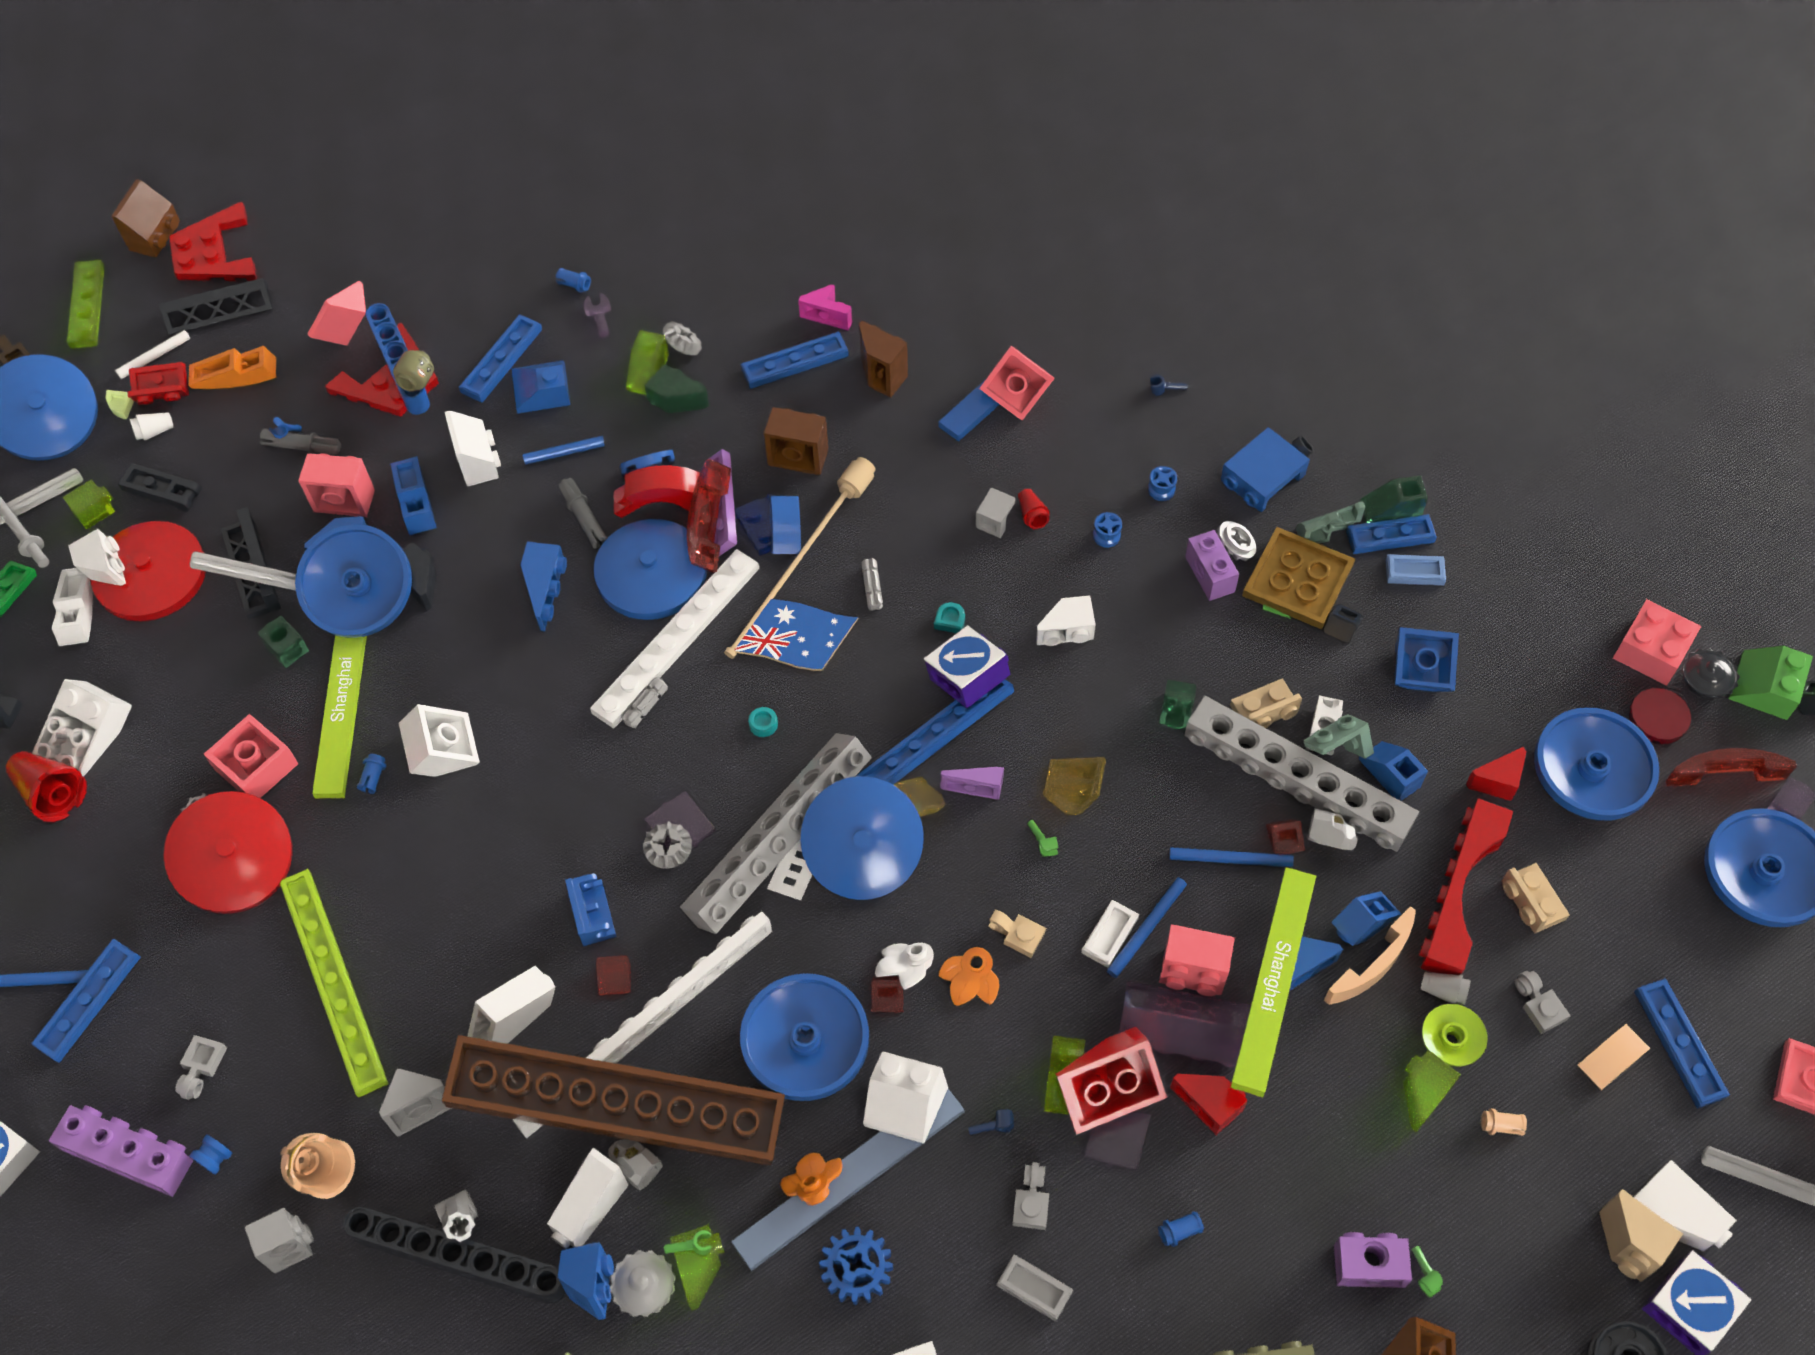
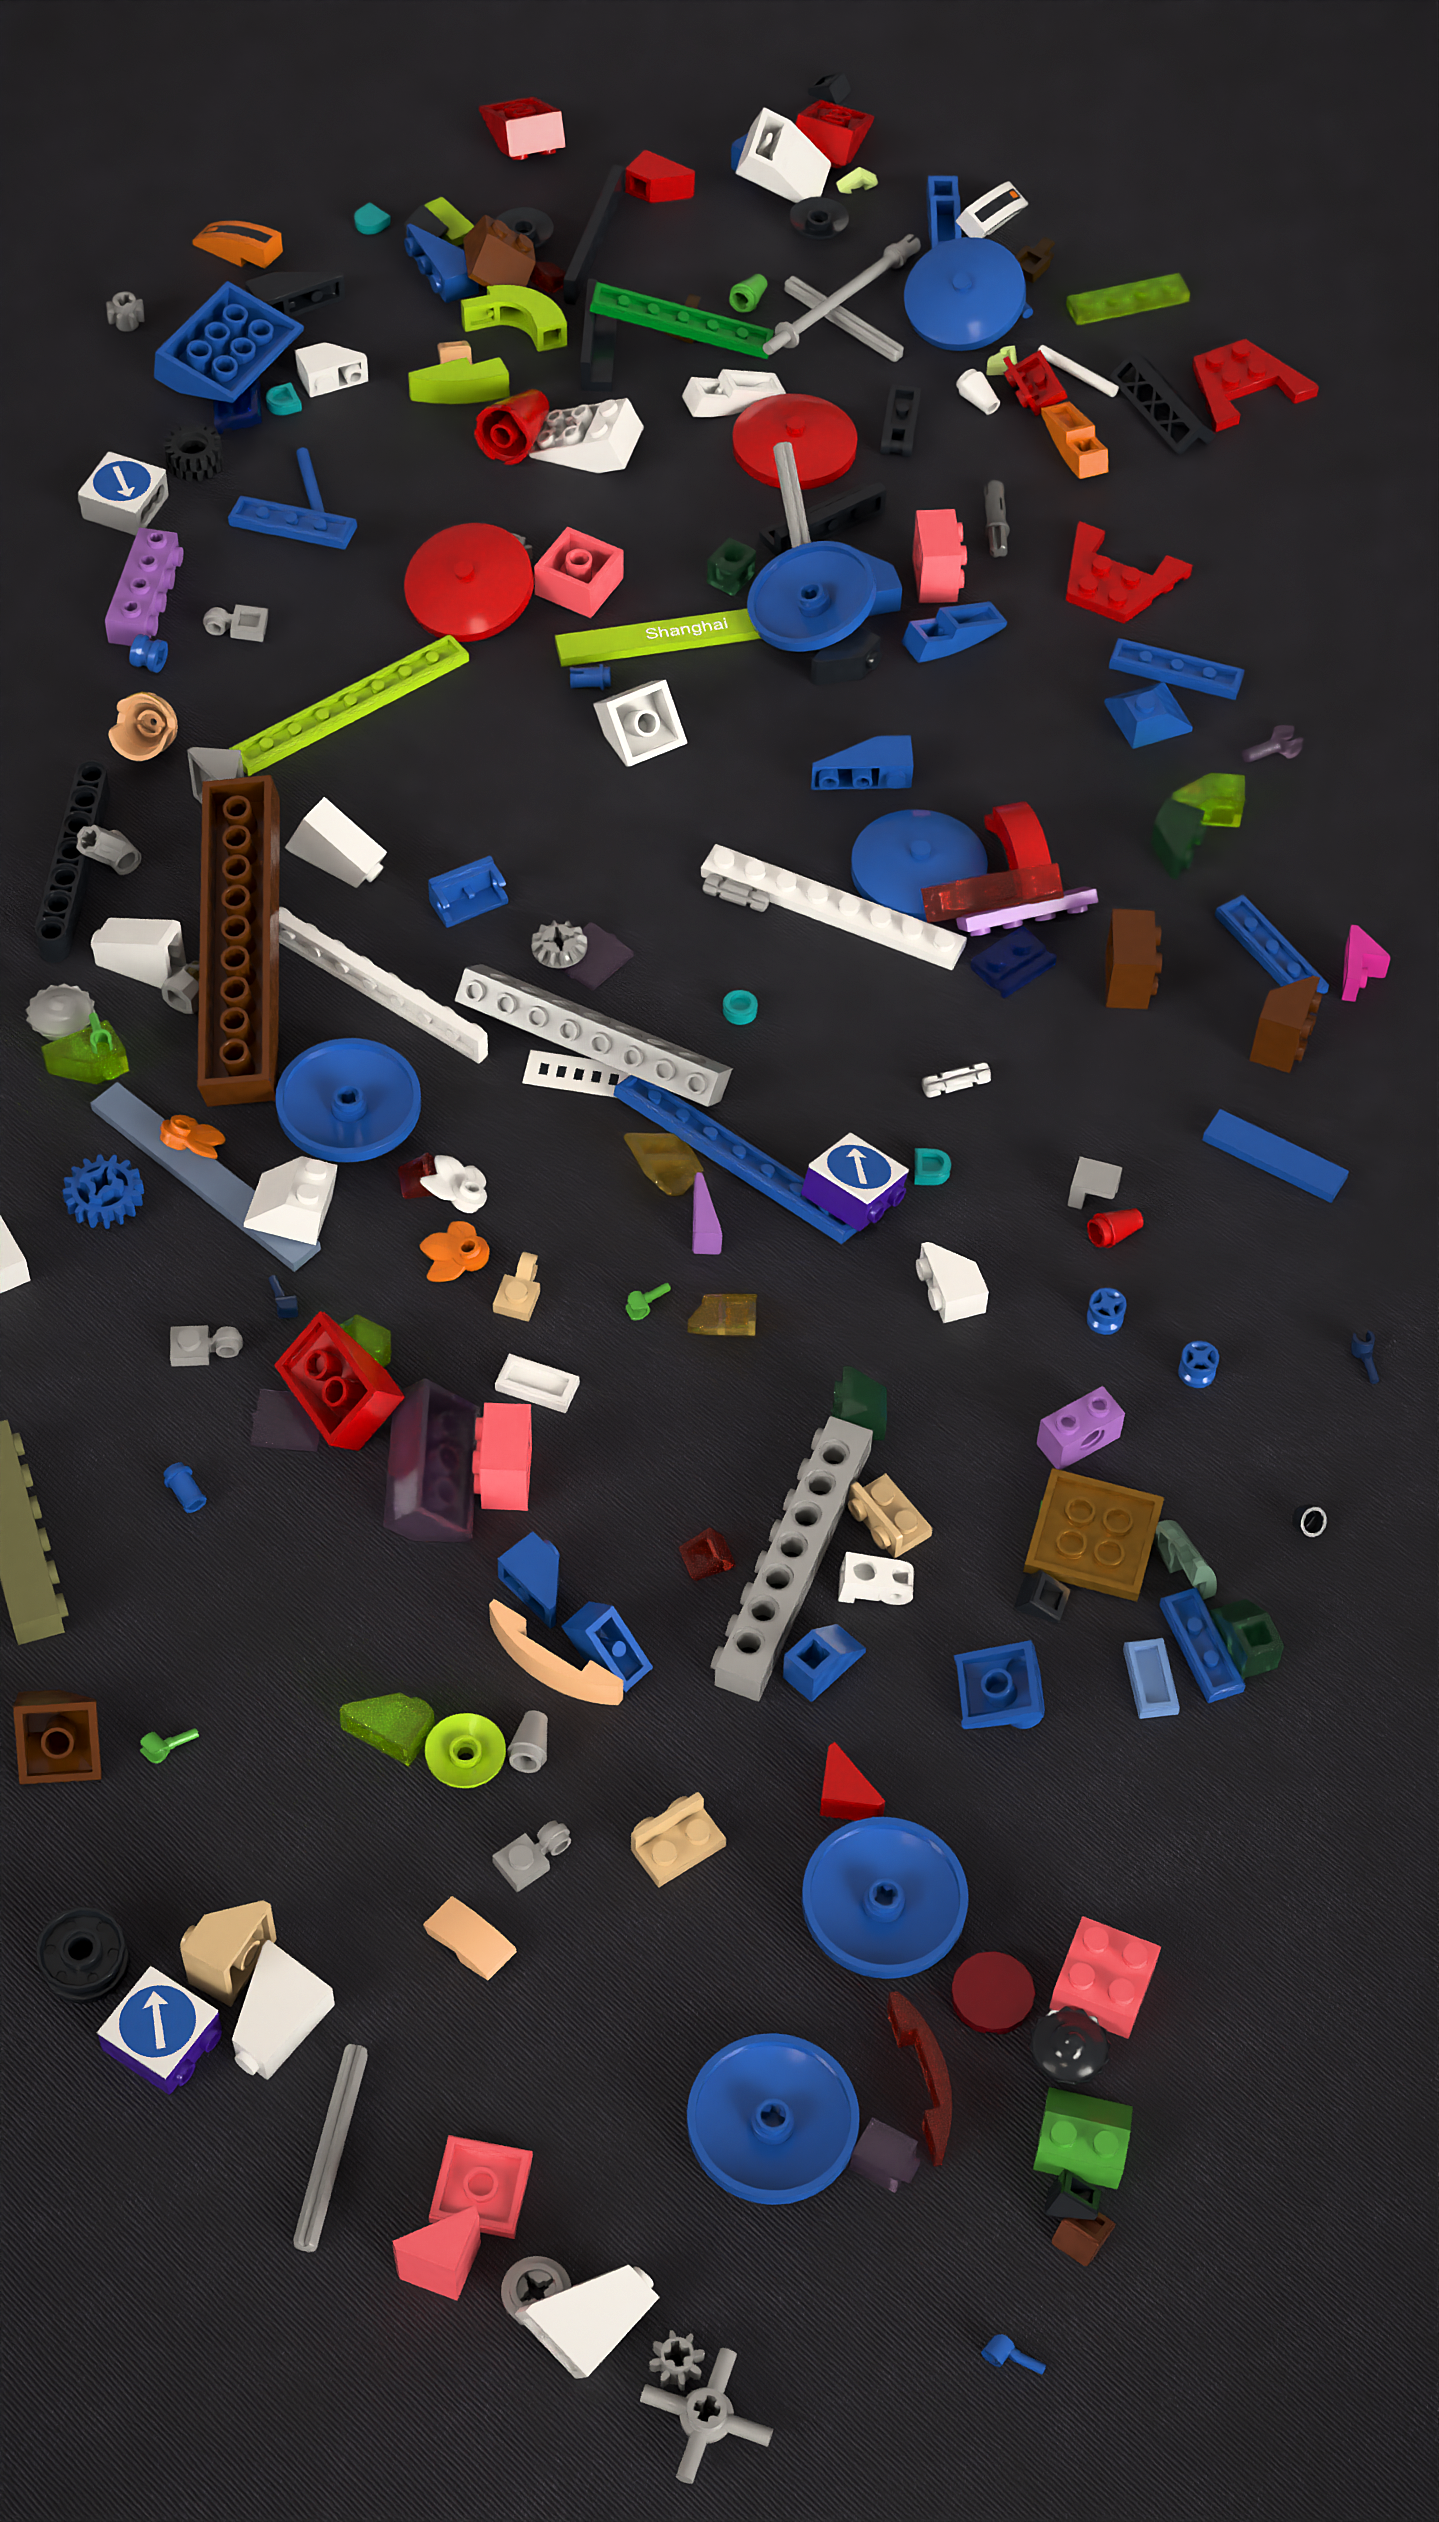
camera: 75 degrees right, 5 degrees down
(89, 503) = (859, 370): clear neon green brick -> none
(98, 558) = (785, 388): white slope -> none
(145, 219) = (1252, 306): slope -> none
(280, 1240) = (64, 717): light grey brick -> none
(282, 429) = (1002, 491): blue hand -> none
(340, 316) = (1170, 499): coral slope -> none
(392, 346) = (1126, 566): blue beam -> none
(413, 370) = (1094, 568): olive head -> none
(473, 448) = (1026, 659): white slope -> none
(563, 450) = (1062, 753): blue bar -> none
(578, 505) = (969, 790): dark grey axle -> none
(579, 281) = (1314, 714): blue pin -> none
(586, 1277) = (56, 961): blue slope -> none
(613, 975) = (396, 929): clear red slope -> none
(654, 459) = (1058, 827): blue tile -> none
(682, 338) = (1245, 825): light grey gear -> none
(785, 525) = (1008, 971): blue slope -> none
(795, 631) = (871, 1014): flag -> none
(861, 837) = (595, 1107): blue dish -> none
(1016, 383) = (1296, 1174): coral slope -> none
(1035, 1287) = (103, 1361): light grey tile -> none
(1146, 927) = (557, 1421): blue bar -> none
(1210, 1098) = (338, 1500): red slope -> none
(1231, 857) = (664, 1499): blue bar -> none
(1237, 540) = (1136, 1438): light grey gear -> none
(1263, 468) = (1257, 1474): blue panel -> none
(1273, 983) = (488, 1528): lime tile -> none
(1331, 830) = (715, 1592): light grey rock -> none
(1348, 731) = (856, 1582): sand green bracket -> none
(1356, 1272) = (166, 1657): medium lavender brick -> none
(1450, 943) = (590, 1738): red arch -> none
(1503, 1122) = (362, 1819): light nougat pin -> none
(1681, 1043) = (506, 2023): blue tile -> none

